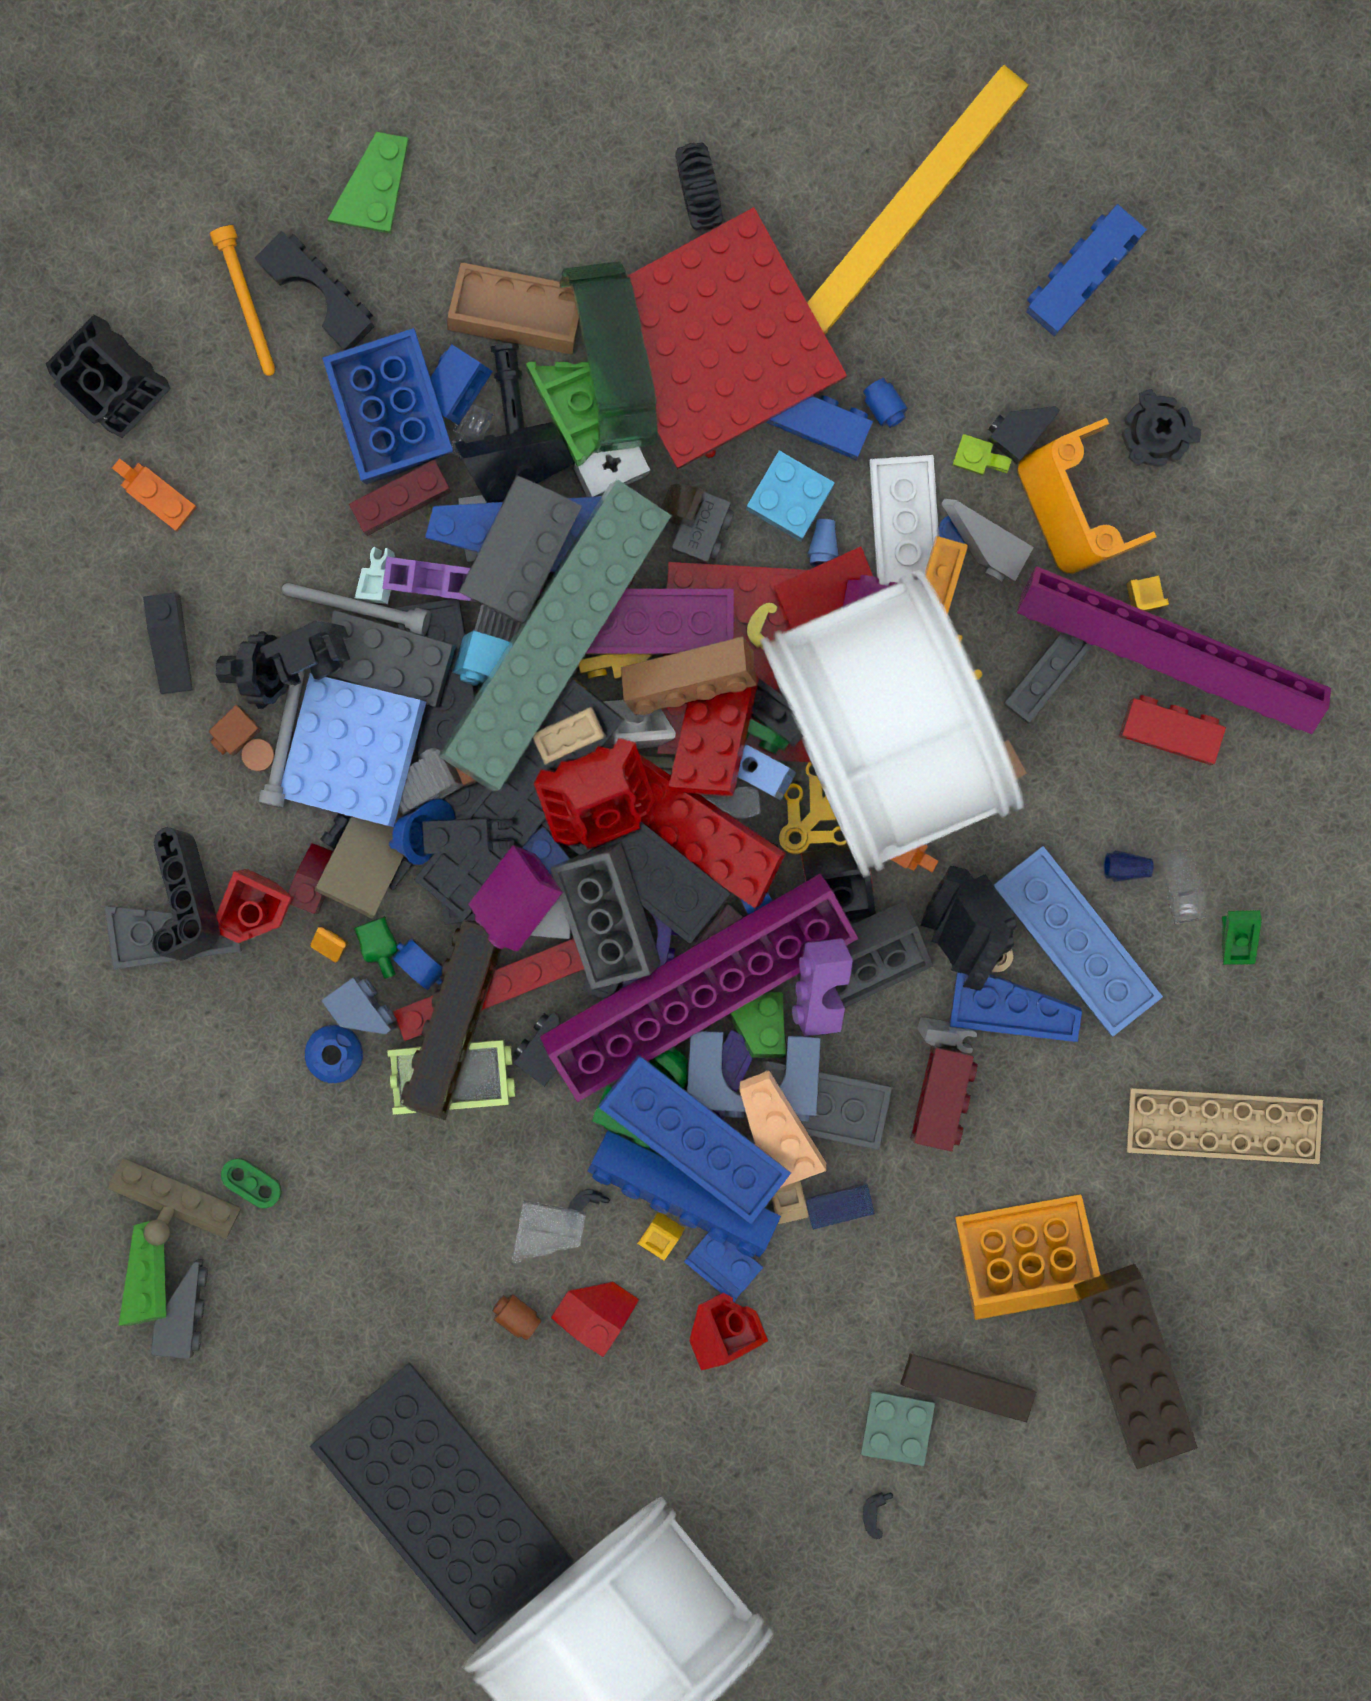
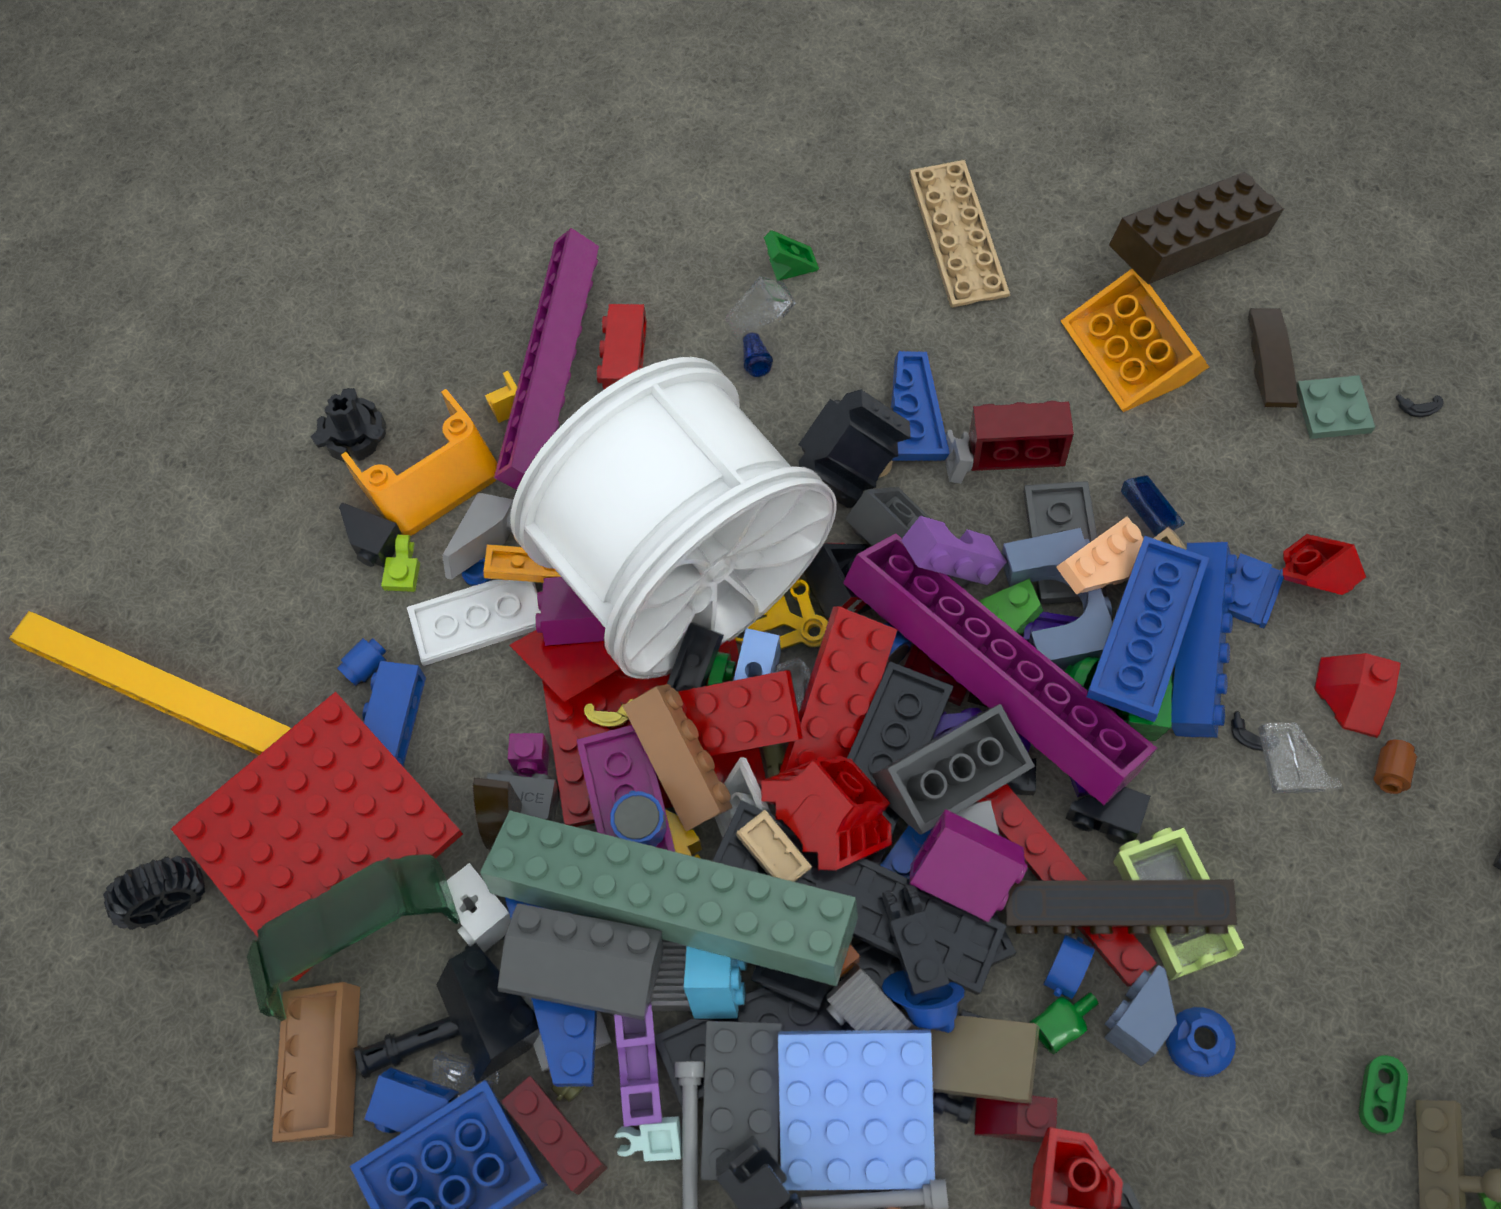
camera: 105 degrees left, 25 degrees down
(329, 944) = (1081, 1079): light orange slope -> none
(571, 403) = (410, 963): bright green wing -> none
(634, 626) = (638, 818): none -> pearl dark grey piece
(661, 1236) = (1250, 653): yellow slope -> none
(741, 542) = (528, 753): none -> magenta brick
(790, 496) = (471, 722): medium azure brick -> none
(824, 543) = (514, 681): medium blue cone -> none
(1077, 941) = (840, 366): medium blue plate -> none
(1086, 269) = (202, 516): blue wedge -> none

